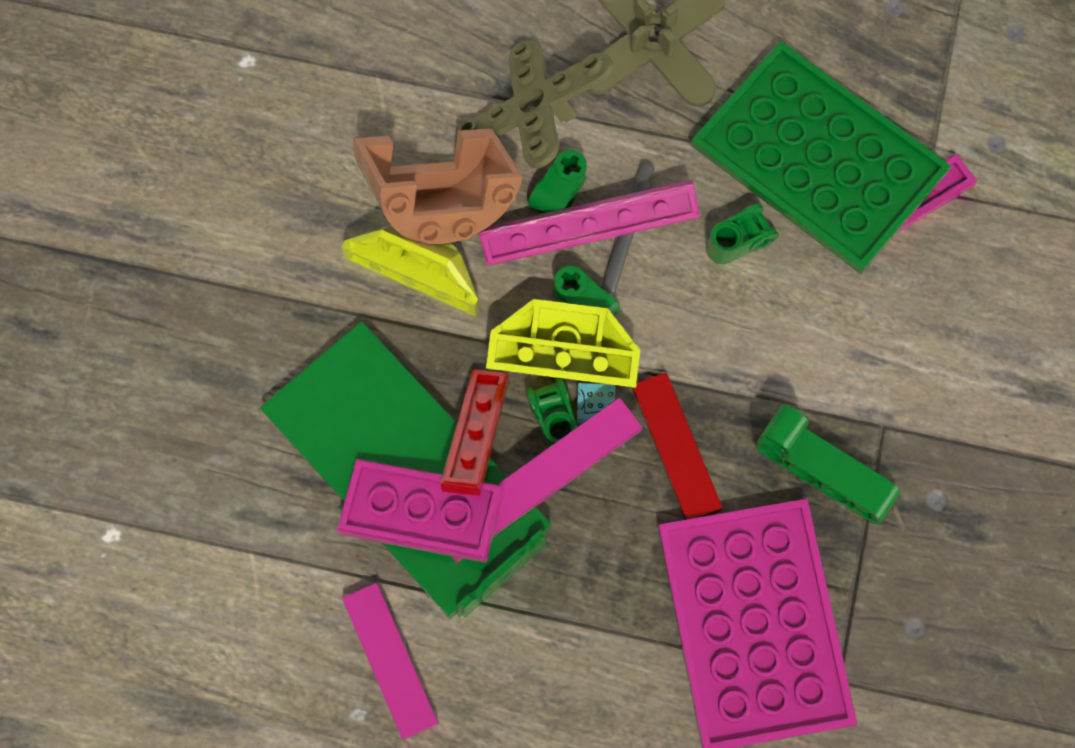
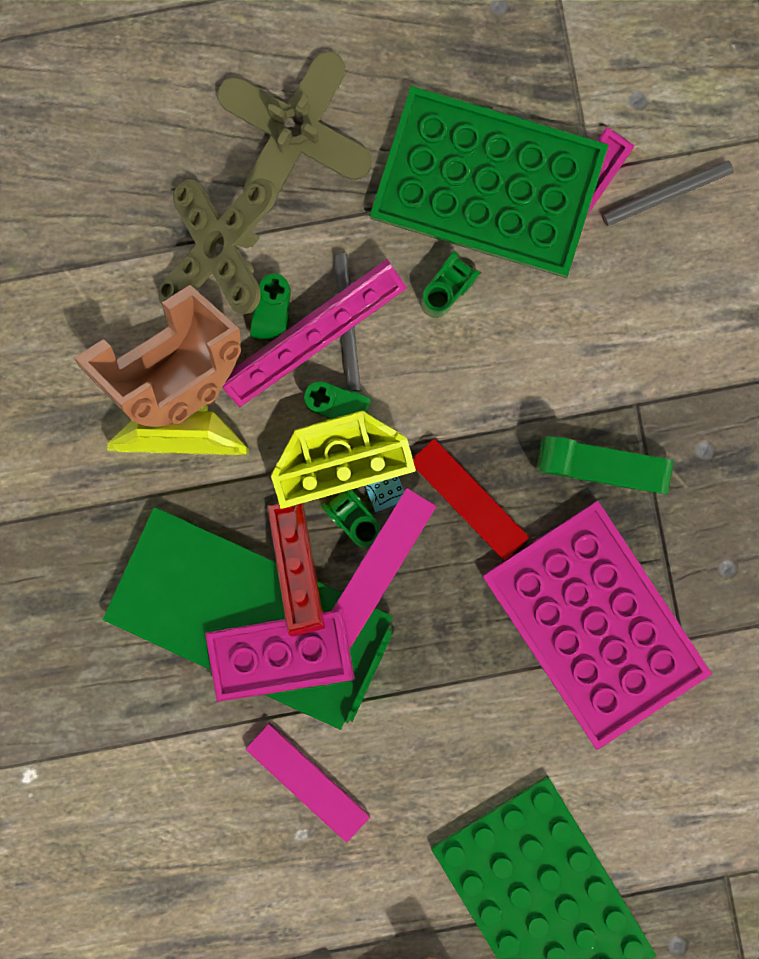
camera: 20 degrees left, 15 degrees up
(992, 238) = (668, 193): none -> dark grey bar

